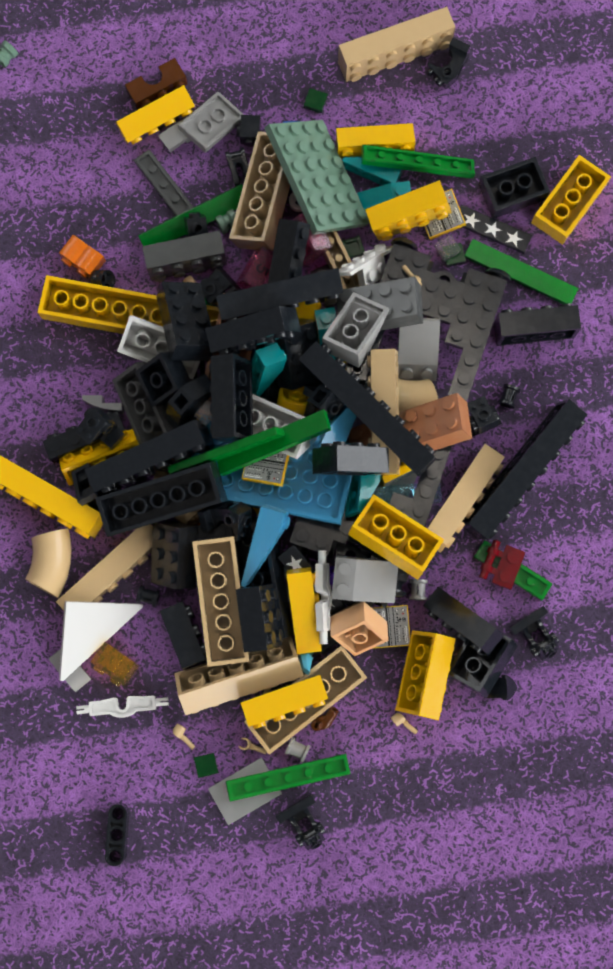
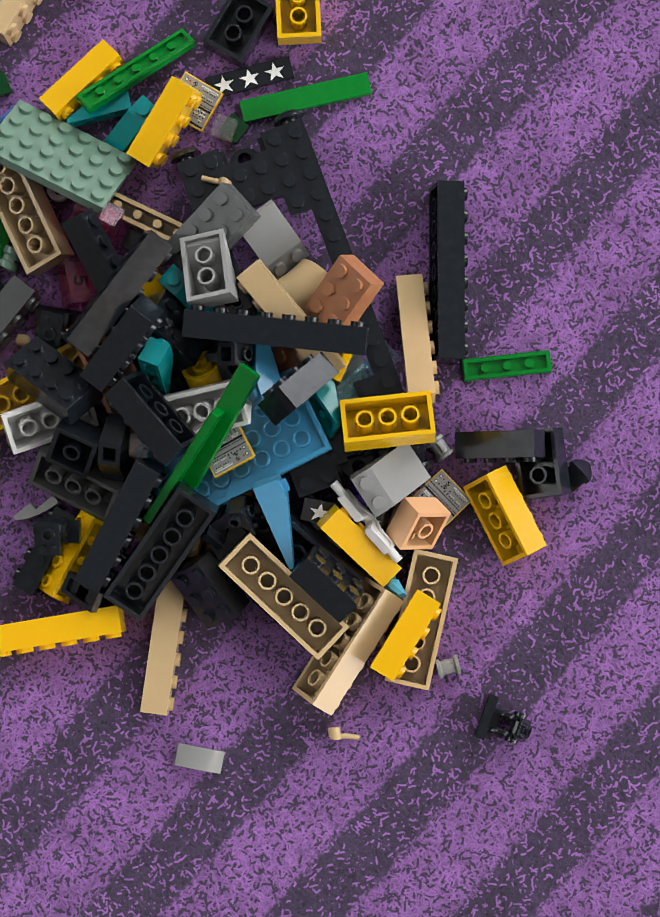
camera: 35 degrees left, 5 degrees up
(50, 561) = (107, 681): tan brick -> none
(88, 627) = (187, 711): white tile -> none
(112, 843) = (356, 871): black beam -> none
(115, 664) = (234, 722): clear yellow brick -> none
(133, 705) = (261, 760): white piece -> none
(148, 596) = (214, 642): black bush -> none
(184, 635) = (274, 649): black brick -> none
(206, 765) = (381, 742): dark green tile -> none
(237, 809) = (431, 737): light grey tile -> none
(252, 746) = (407, 695): tan hand -> none
(287, 777) = (458, 696): green tile -> none
(325, 721) = (451, 623): reddish brown arm -> none
(354, 247) = (141, 192): dark green tile -> none
(368, 266) = (169, 202): white bracket -> none
(398, 719) = (511, 570): tan hand -> none
(482, 416) = (375, 254): black tile -> none
(508, 565) = (500, 367): dark red plate -> none
(509, 396) = (382, 216): black bush -> none
(537, 324) = (357, 135): black brick -> none
(546, 648) = (587, 409): black tile -> none

